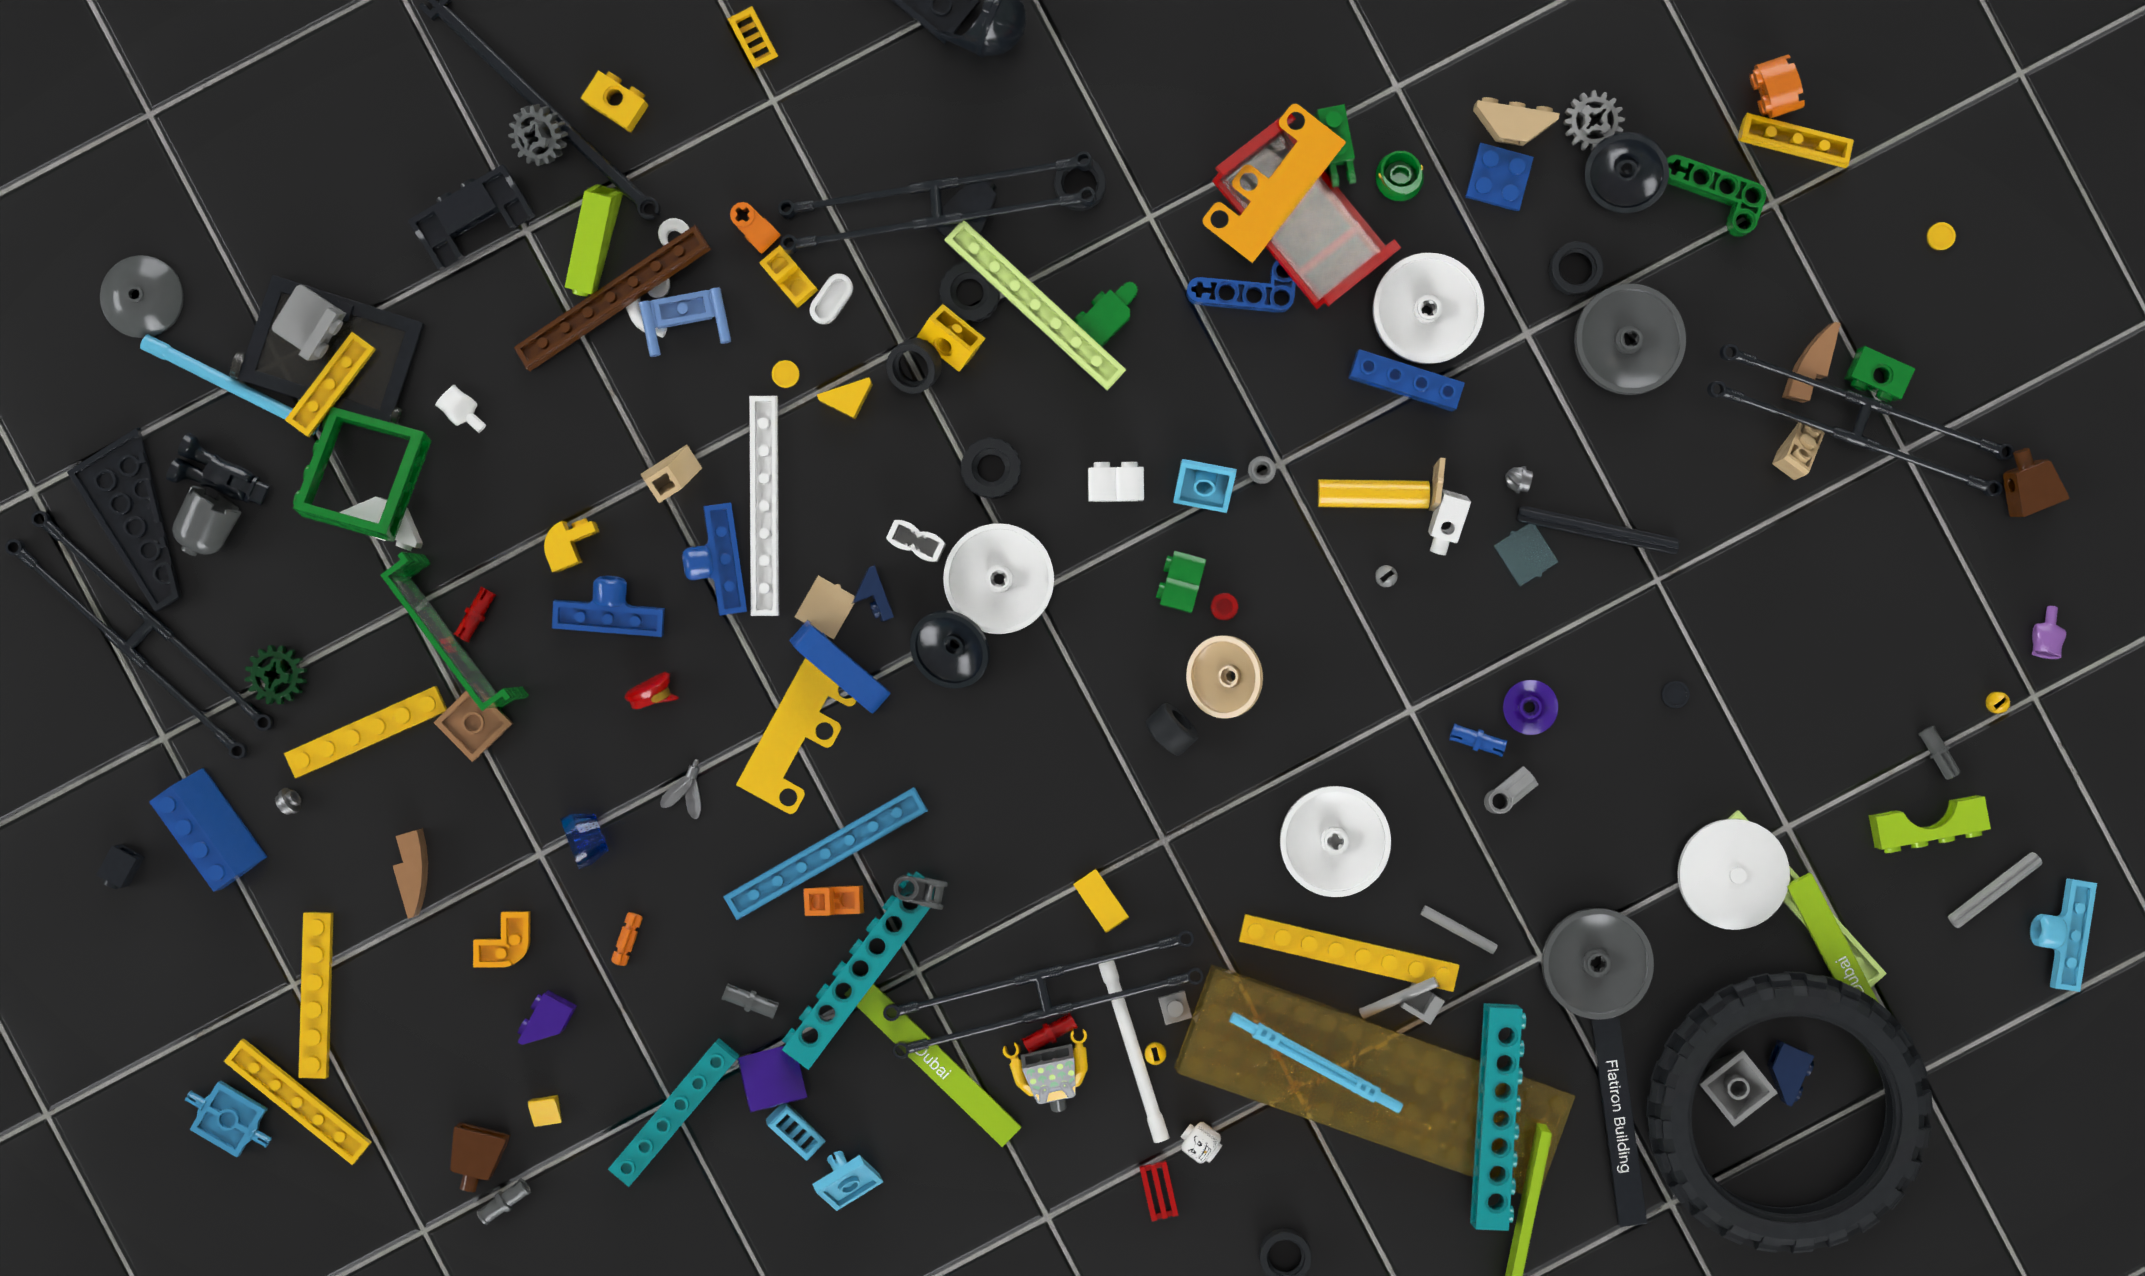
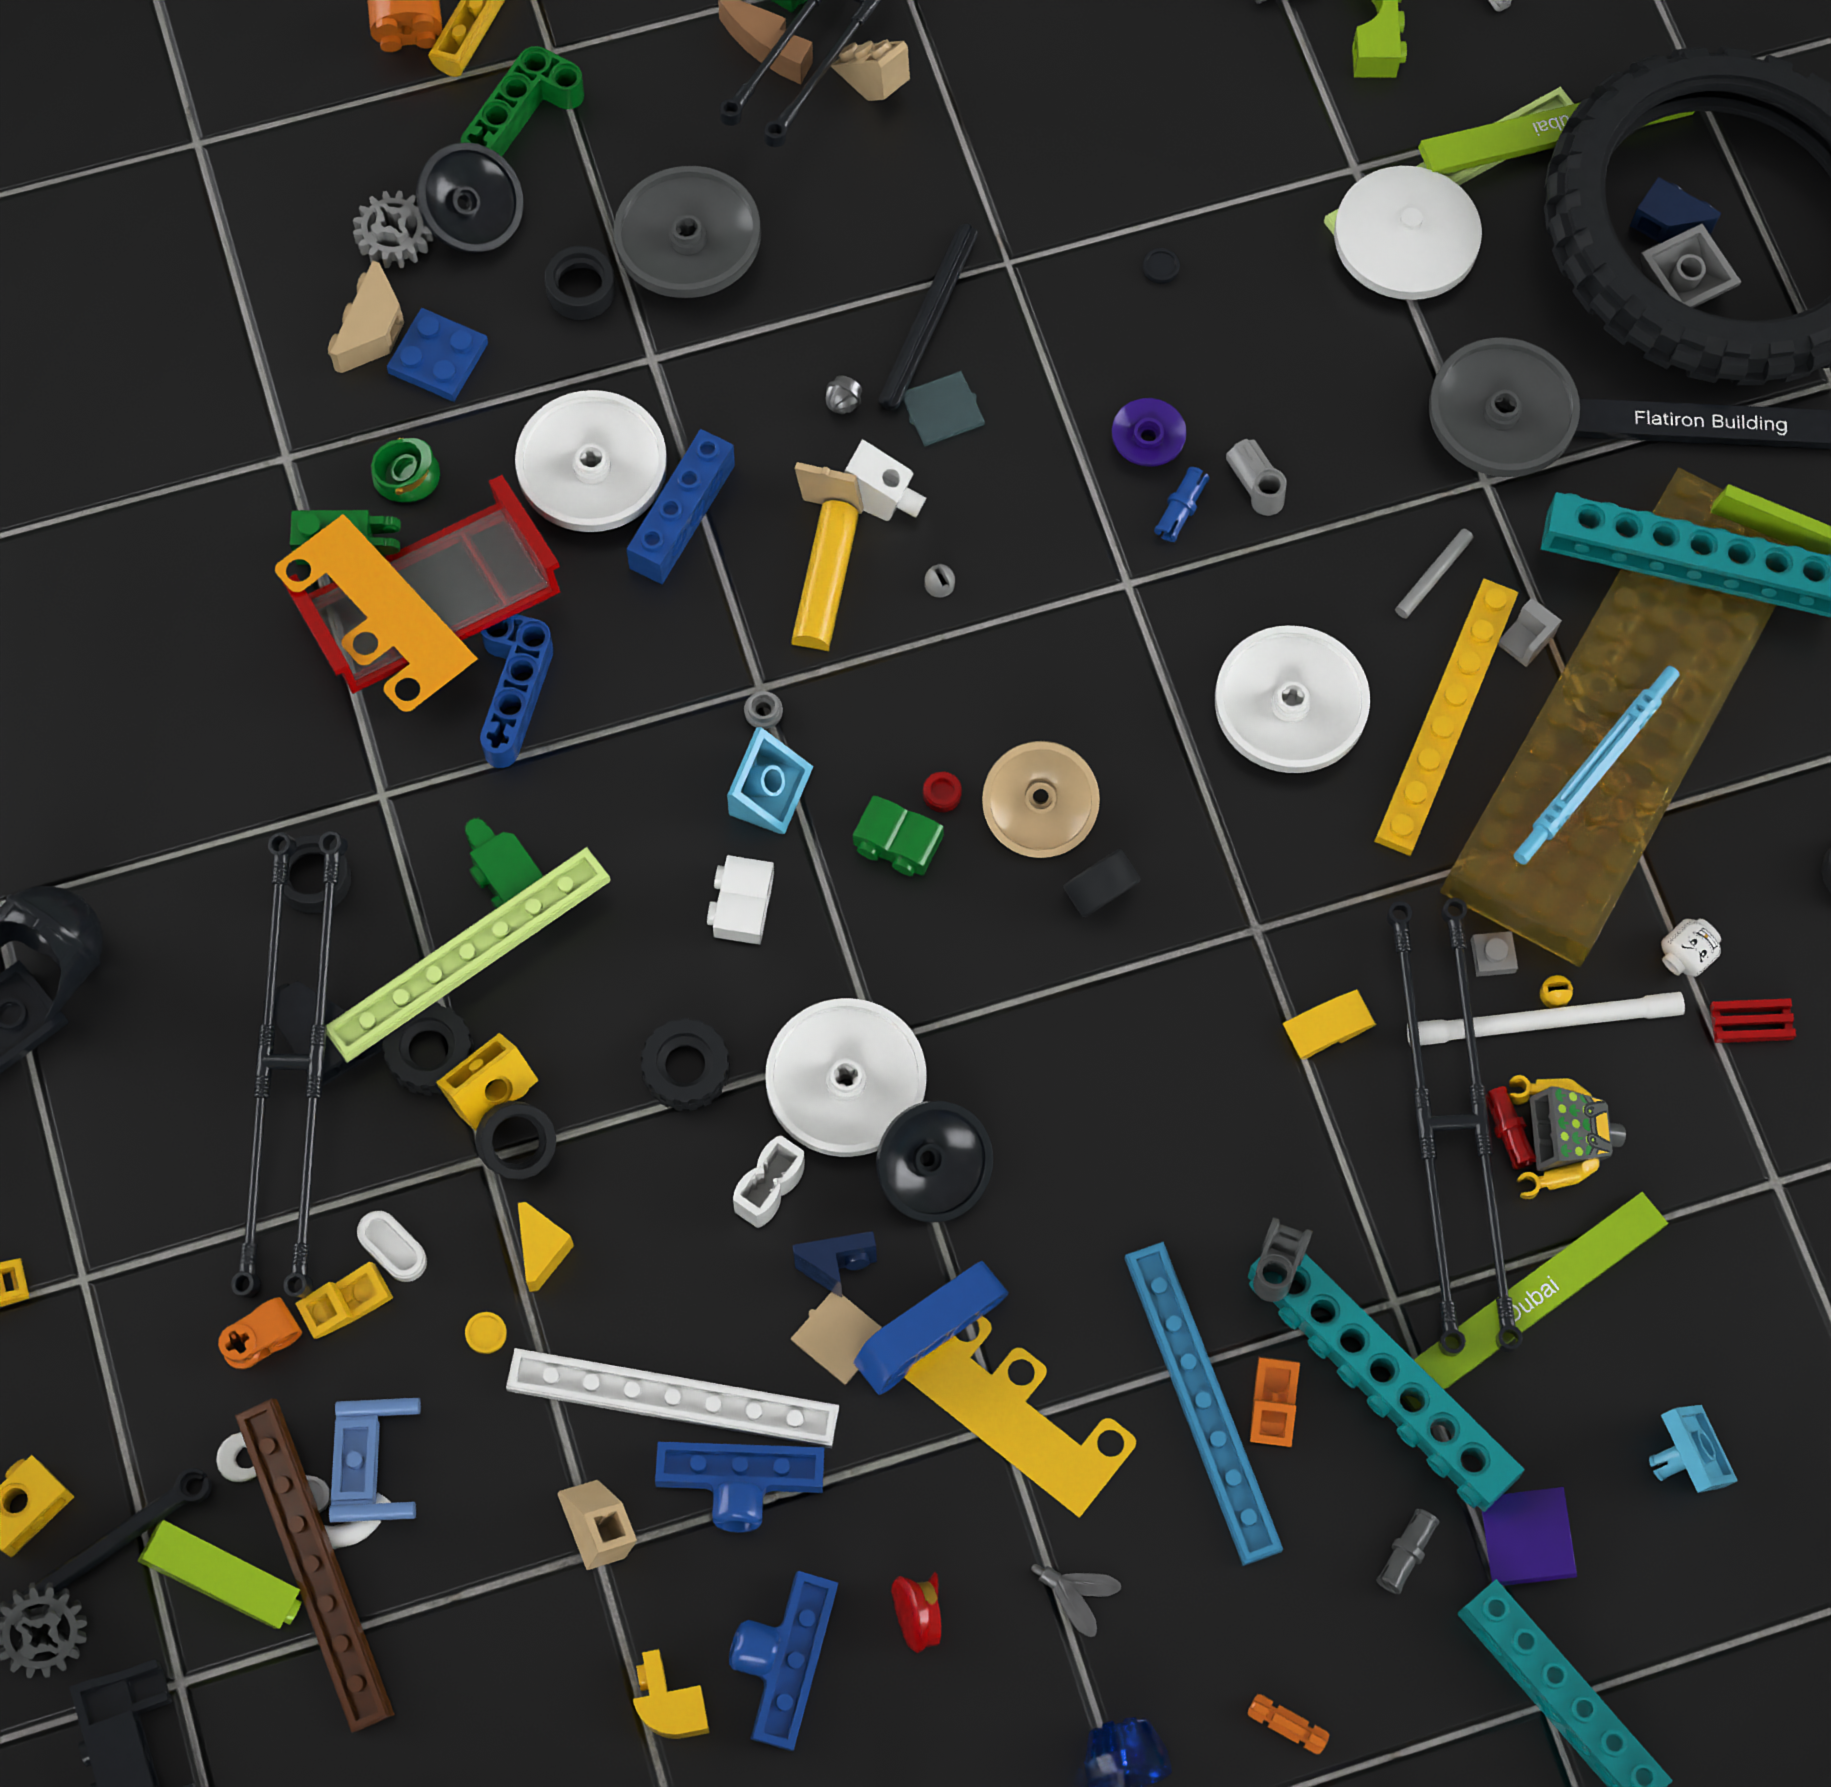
camera: 80 degrees left, 20 degrees down
(778, 1114) = (1590, 1537): medium azure slope -> none
(1398, 997) = (1518, 659): light grey bar -> none

